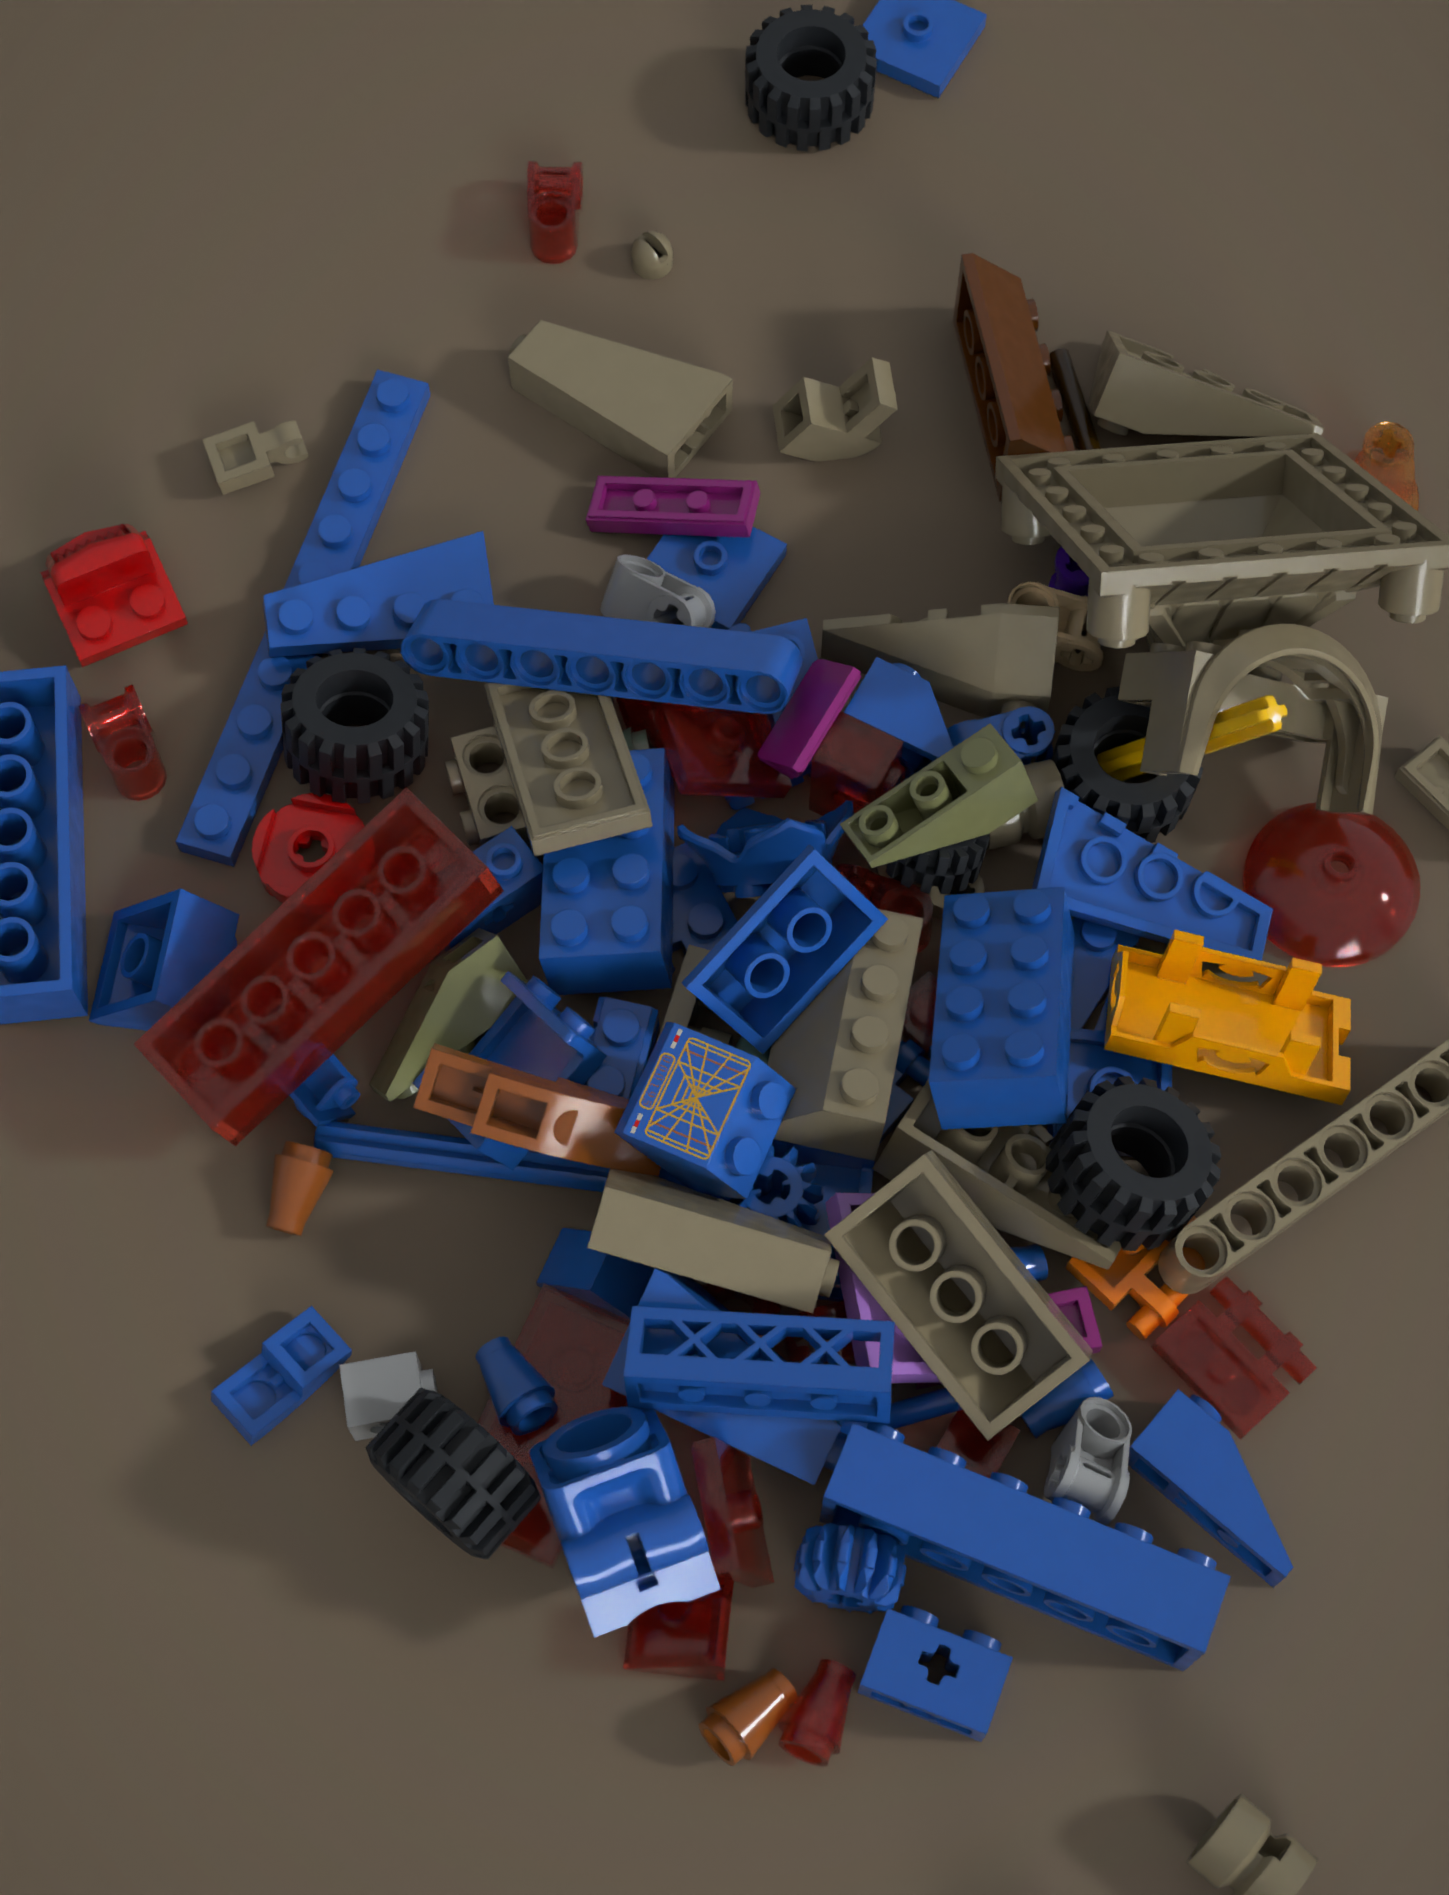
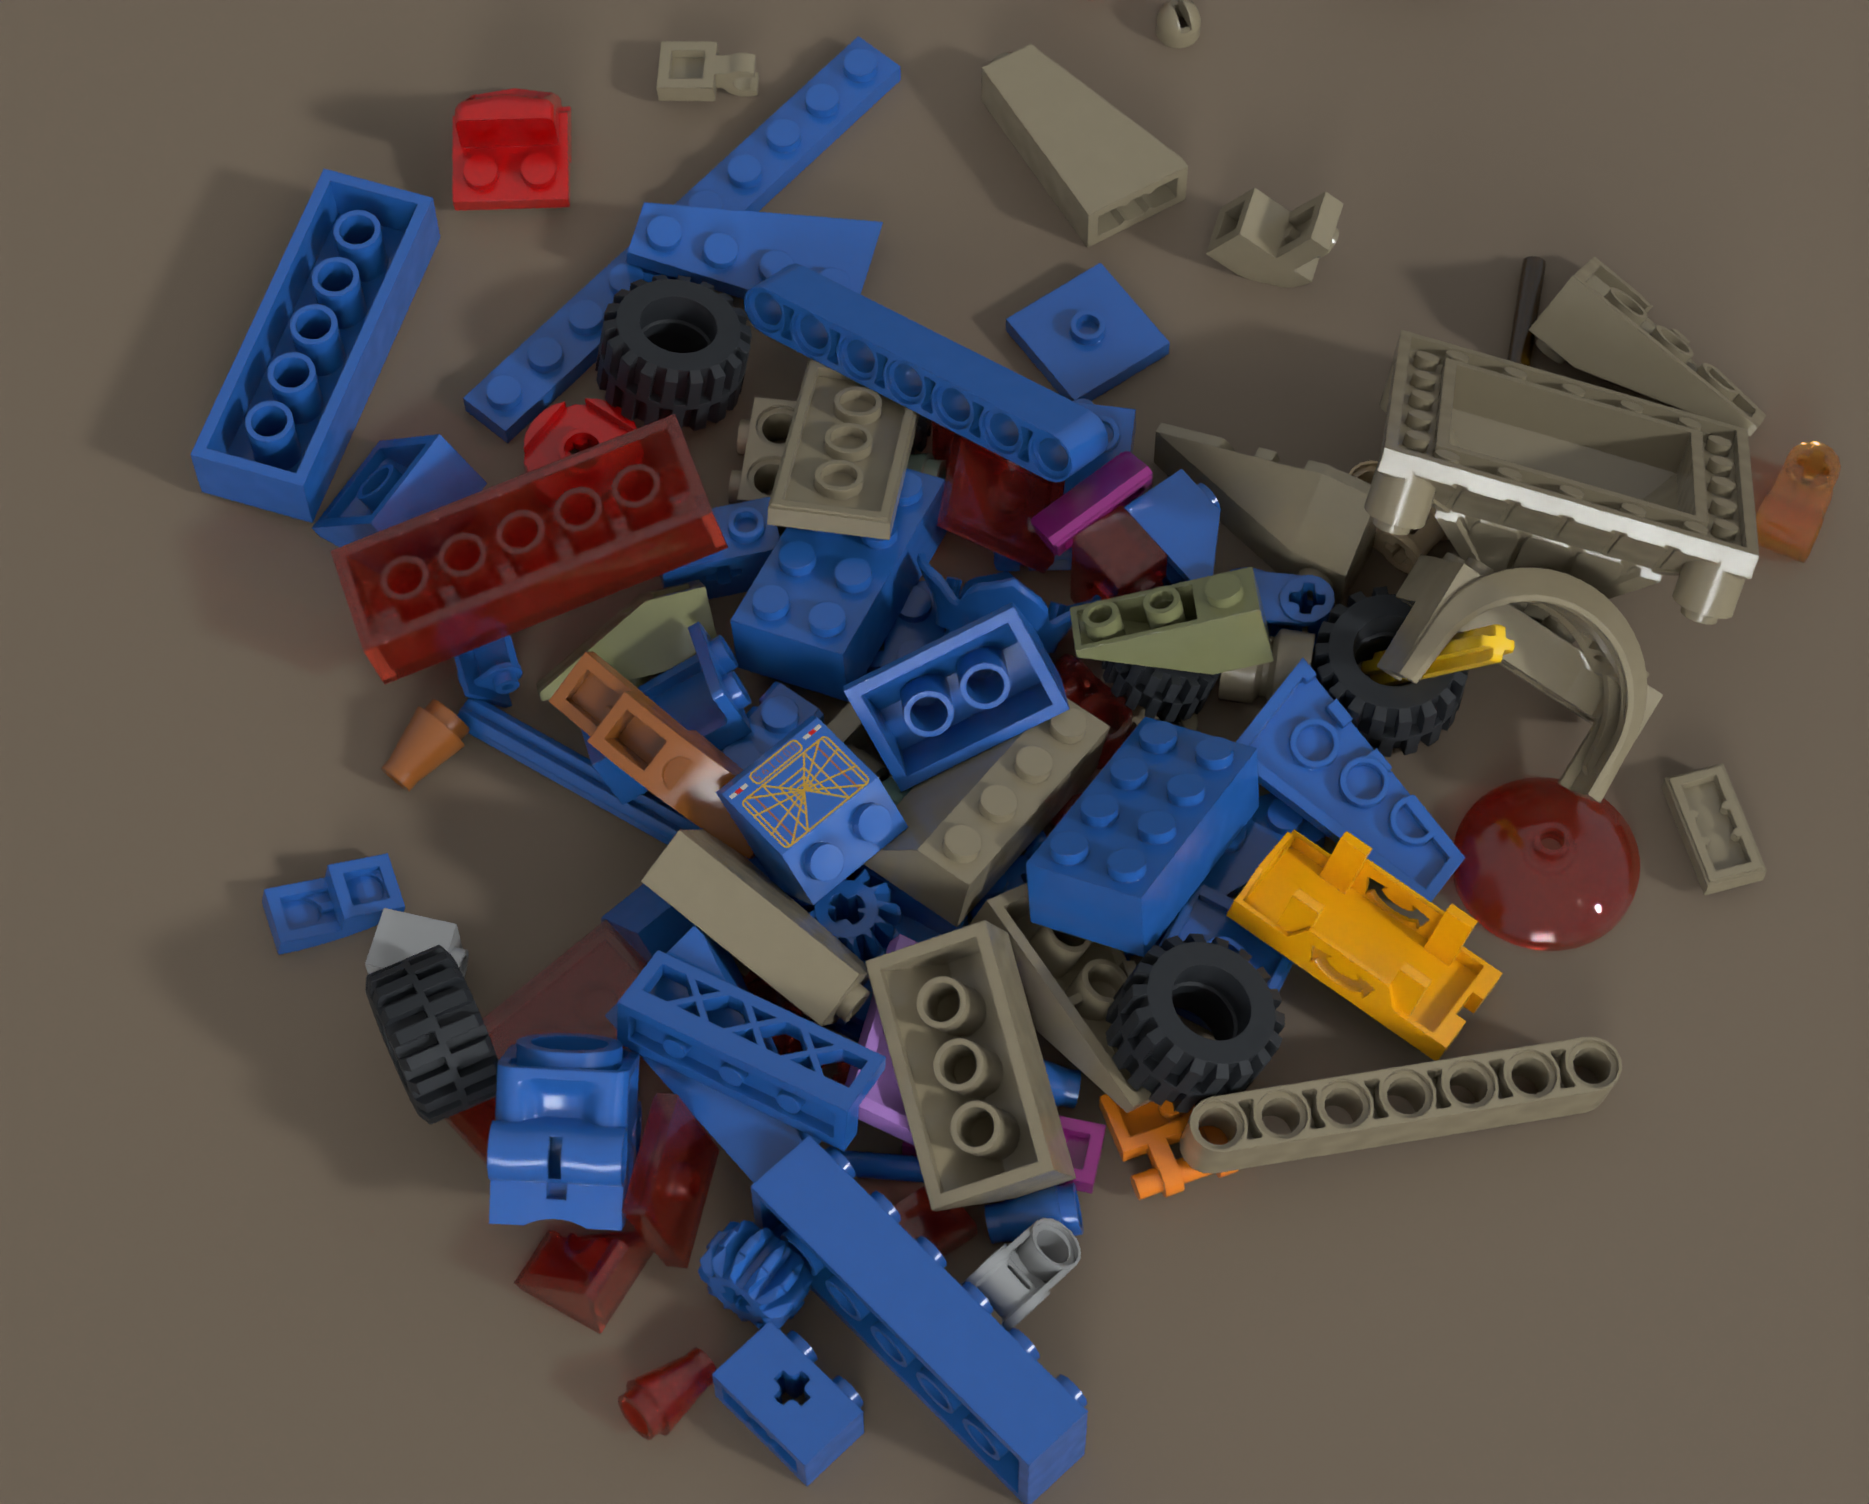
camera: 25 degrees right, 5 degrees down
(122, 737) = (460, 293): clear red piece -> none
(516, 1388) = (532, 993): blue cone -> none
(649, 593) = (1011, 337): light grey piece -> none
(673, 506) = (1076, 266): magenta tile -> none
(747, 1716) = (601, 1366): dark orange cone -> none
(1006, 364) = (1472, 246): reddish brown slope -> none
(1203, 1474) = (1125, 1322): blue slope -> none
(1222, 1368) = (1198, 1253): clear red plate -> none

